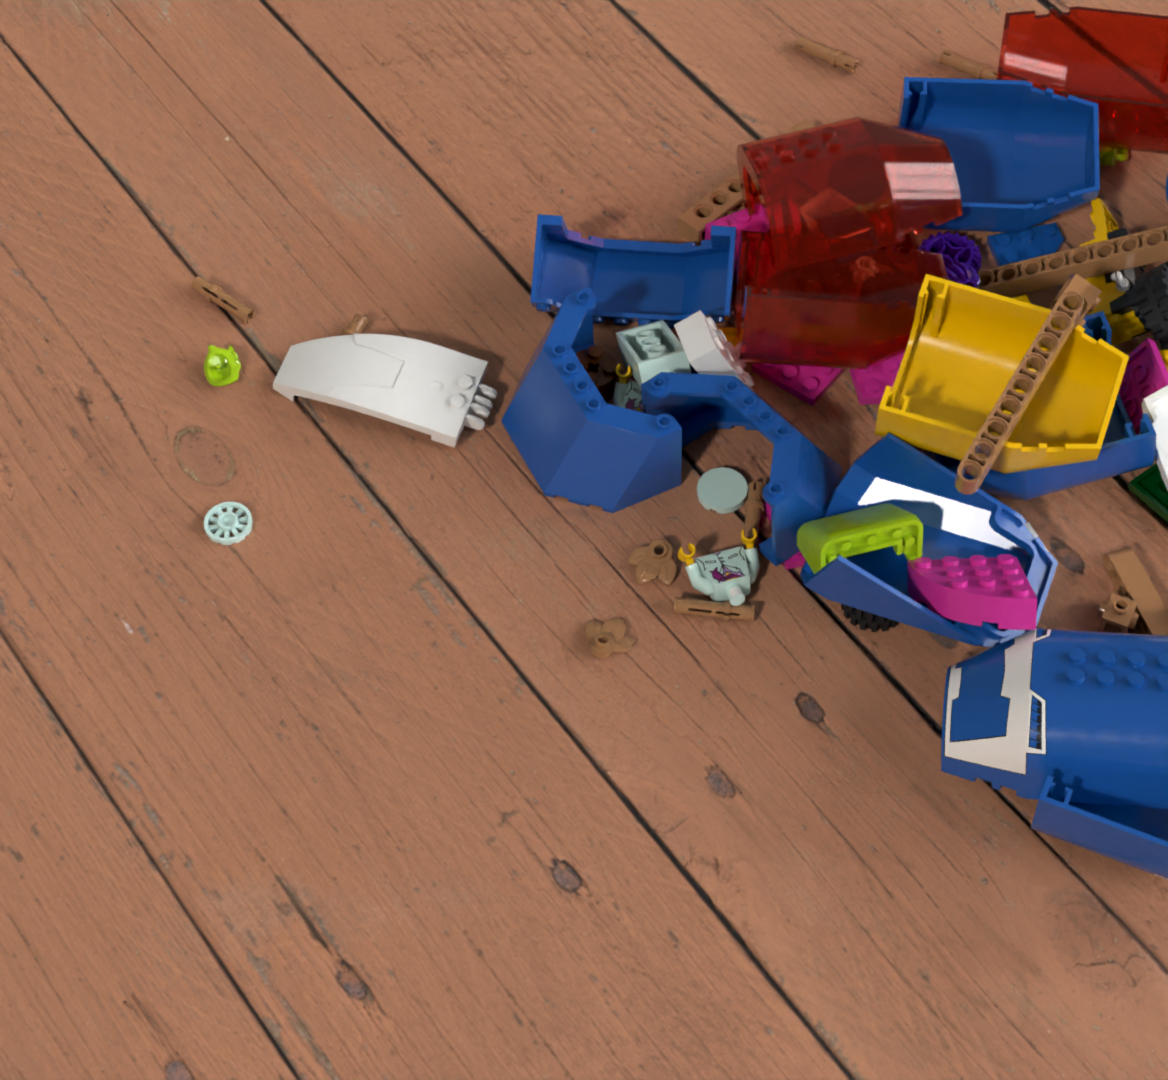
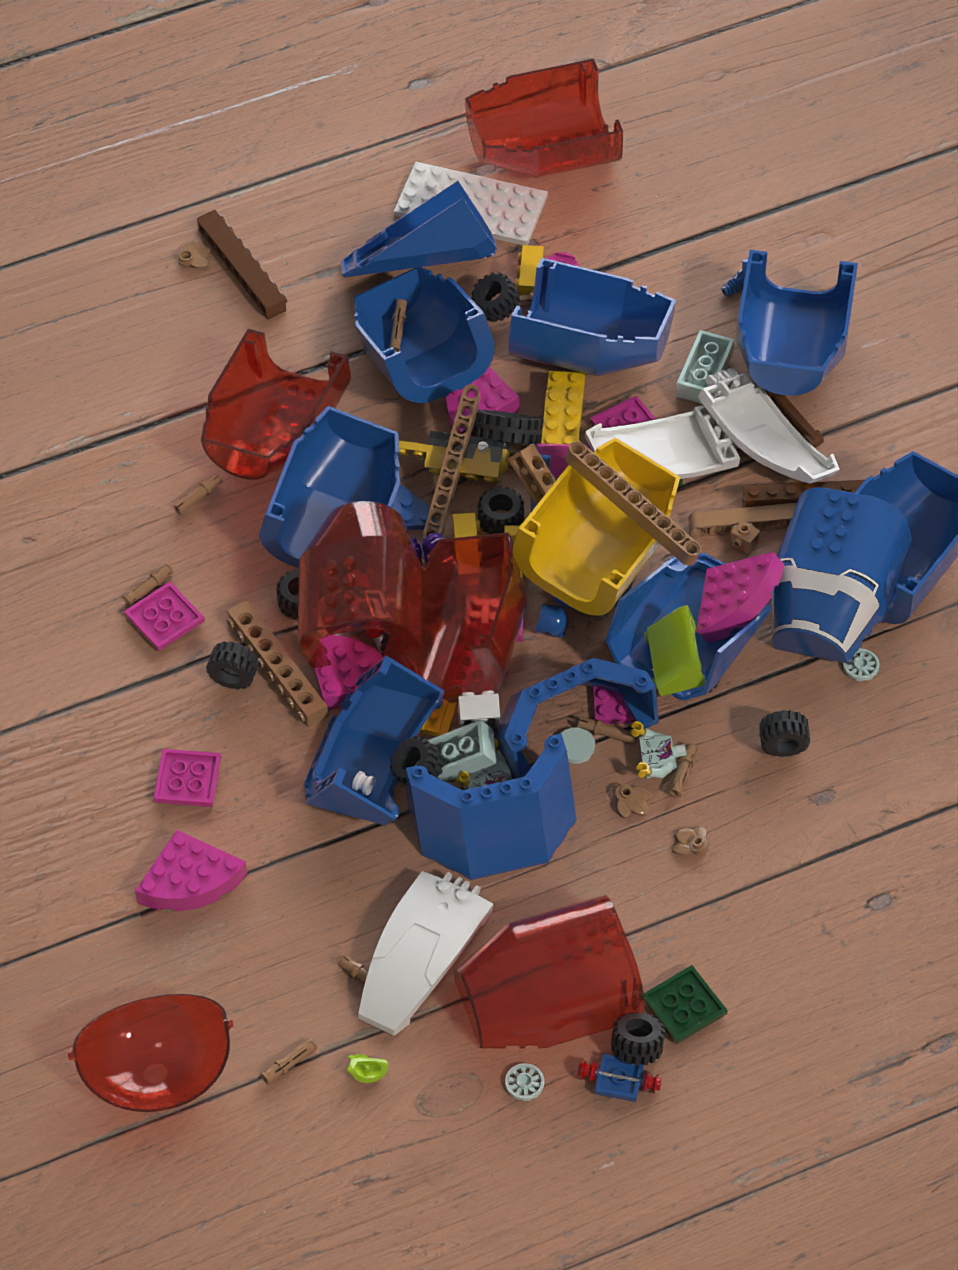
camera: 80 degrees left, 0 degrees up
(193, 161) = (154, 1051): none -> clear red windscreen
(242, 614) = (618, 1079): none -> blue plate
(295, 600) = (637, 1038): none -> black tyre
(355, 500) = (551, 978): none -> clear red windscreen
(358, 667) = (684, 1004): none -> dark green plate
(445, 164) = (189, 875): none -> dark pink brick
(574, 140) = (187, 777): none -> dark pink plate
(602, 287) = (363, 783): none -> white wheel
(625, 317) = (410, 753): none -> black tyre
(725, 135) = (232, 665): none -> black tyre
(787, 75) = (164, 616): none -> dark pink plate
(791, 706) = (784, 733): none -> black tyre
(954, 797) = (862, 664): none -> light aqua wheel

